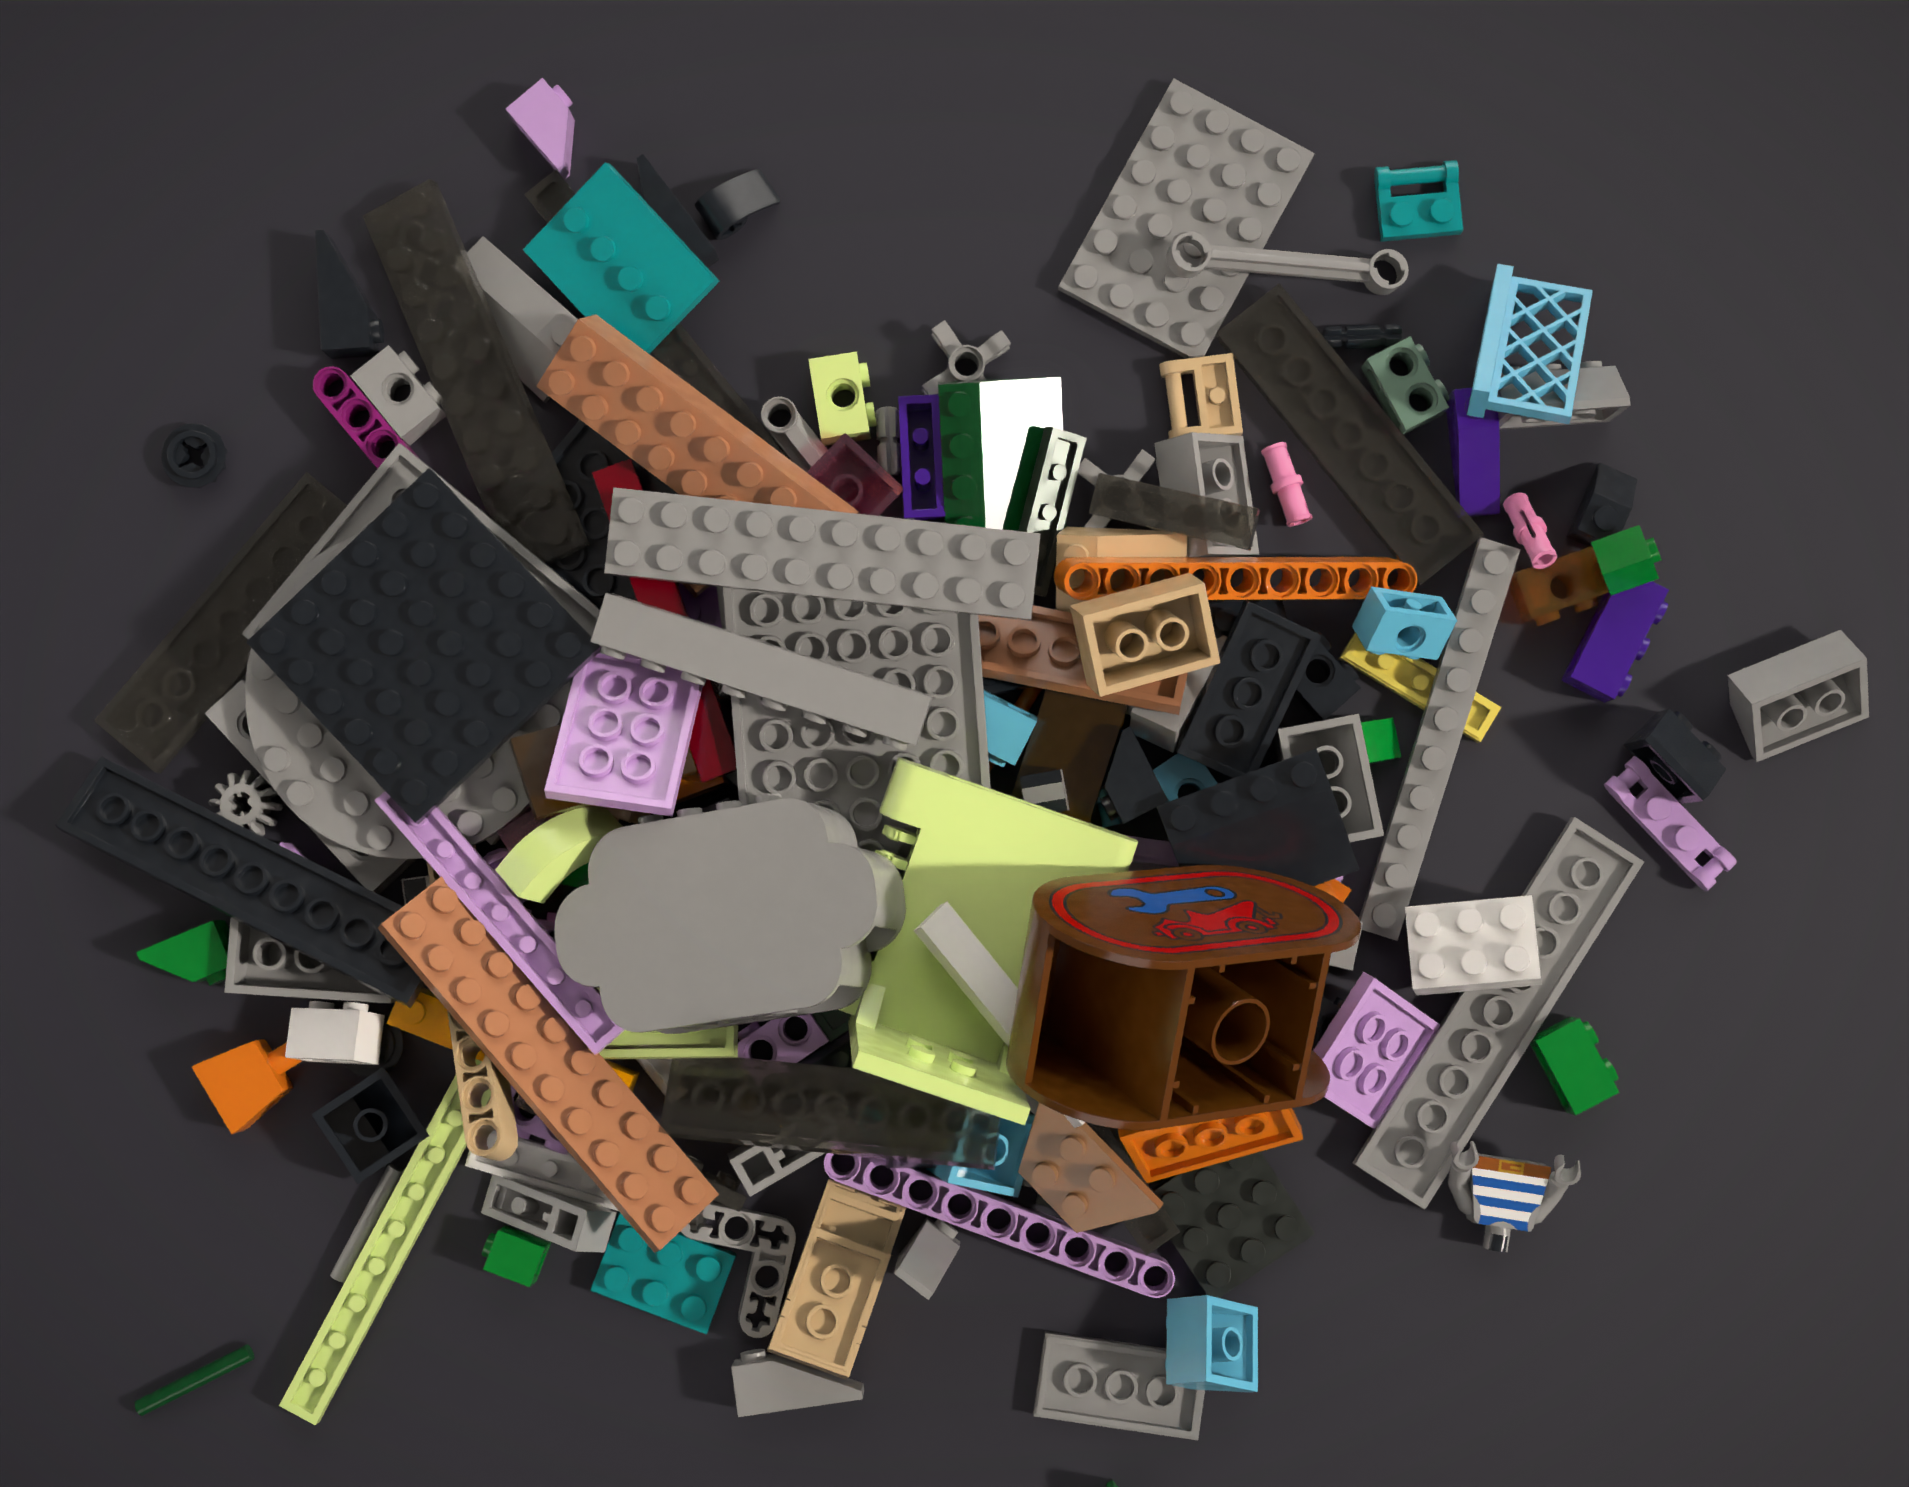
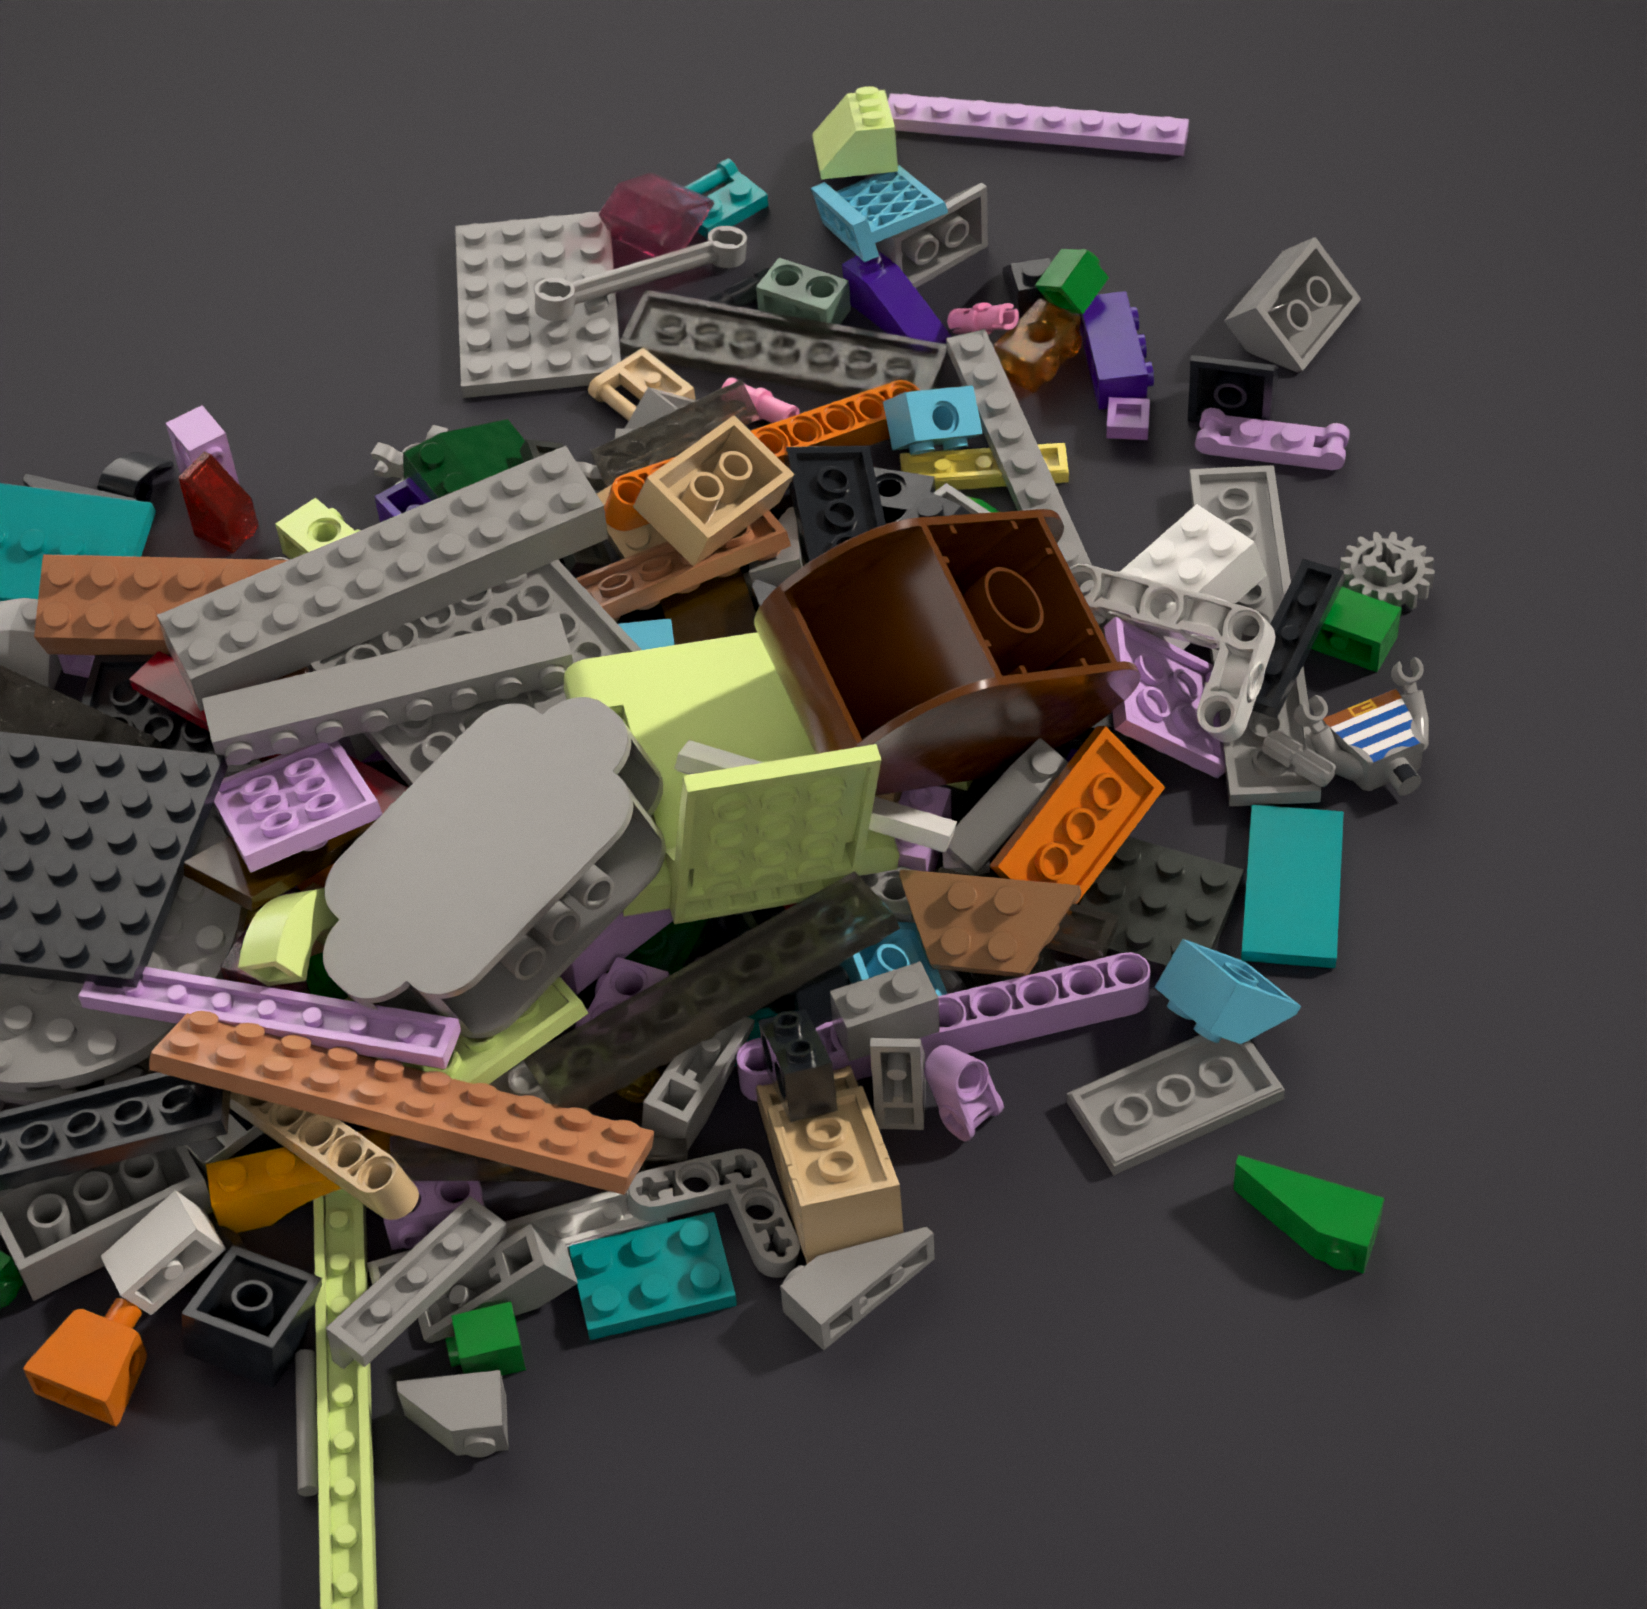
camera: 35 degrees left, 35 degrees down
(465, 1298) = (459, 1411): none -> light grey slope
(484, 1199) = (414, 1283): none -> light grey fence
(778, 301) = (217, 504): none -> clear red slope
(794, 238) = (197, 433): none -> lavender brick
(850, 1219) = (798, 1065): none -> black brick
(948, 1207) = (885, 1006): none -> light grey brick
(966, 1291) = (961, 1090): none -> lavender piece
(1342, 1268) = (1293, 886): none -> teal tile
(1348, 196) = (654, 214): none -> clear pink slope
(1425, 1167) = (1290, 754): none -> light grey piece
(1437, 1025) = (1196, 620): none -> white beam
(1507, 1067) = (1296, 629): none -> black plate
(1571, 719) = (1128, 418): none -> medium lavender plate
(1578, 229) = (857, 137): none -> yellowish green slope
(1637, 1048) = (1388, 570): none -> light grey gear
(1758, 304) = (1039, 124): none -> lavender plate

